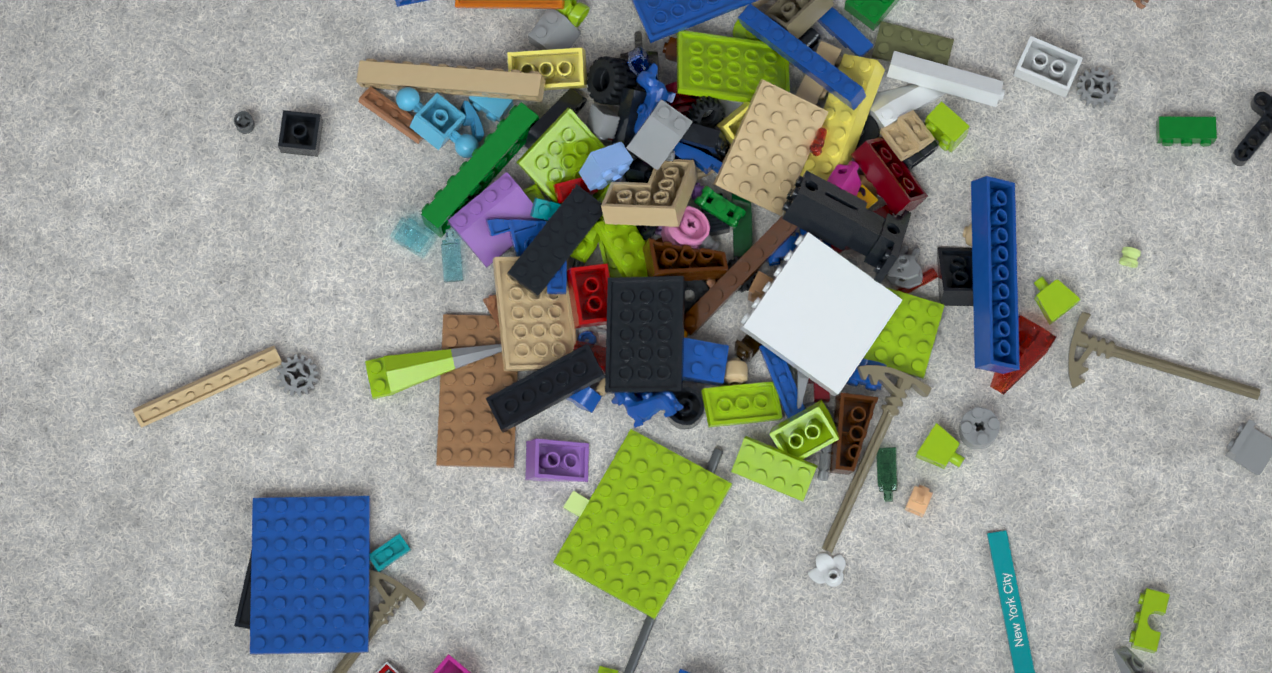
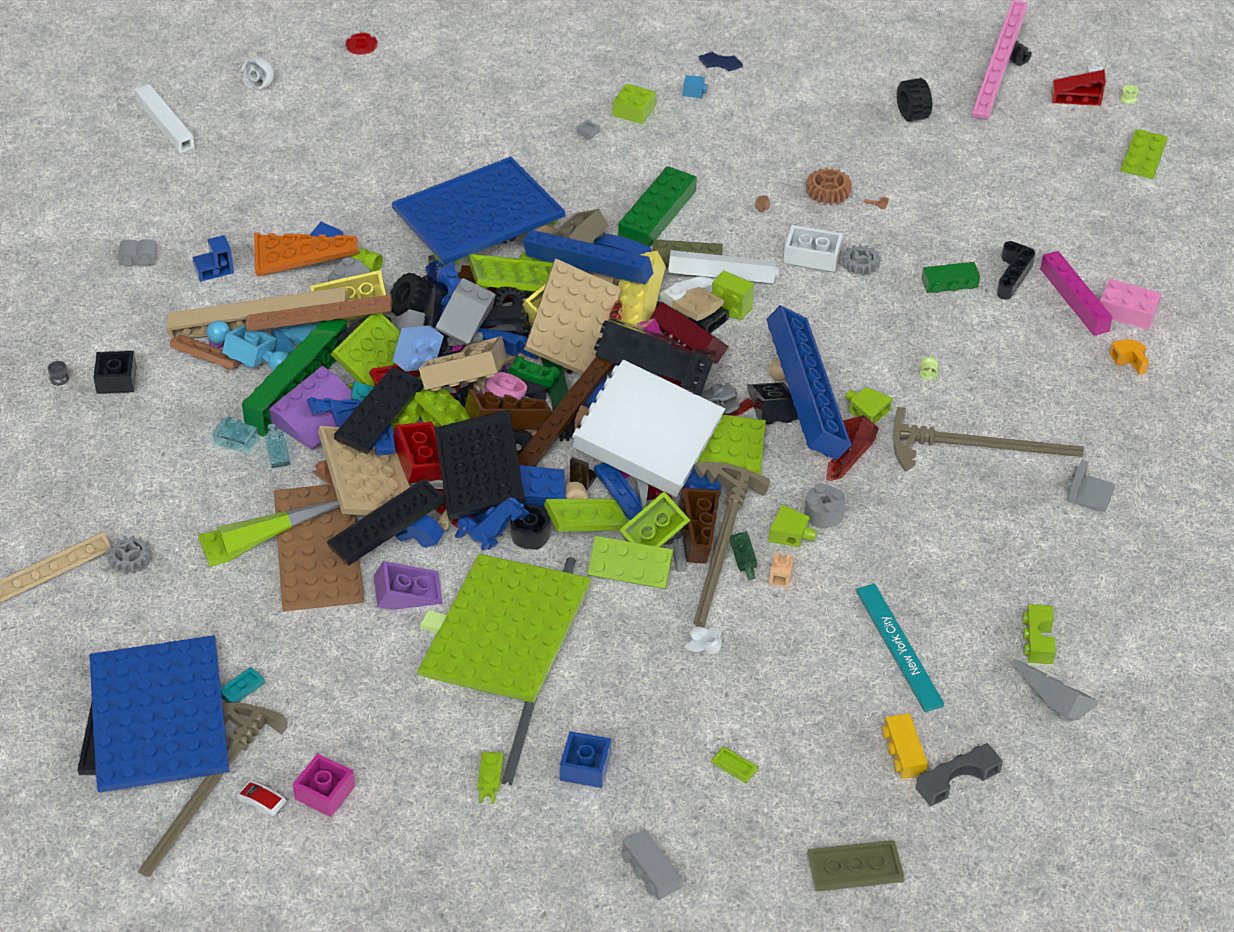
camera: 15 degrees left, 30 degrees down
(511, 104) = (321, 312): none -> nougat plate

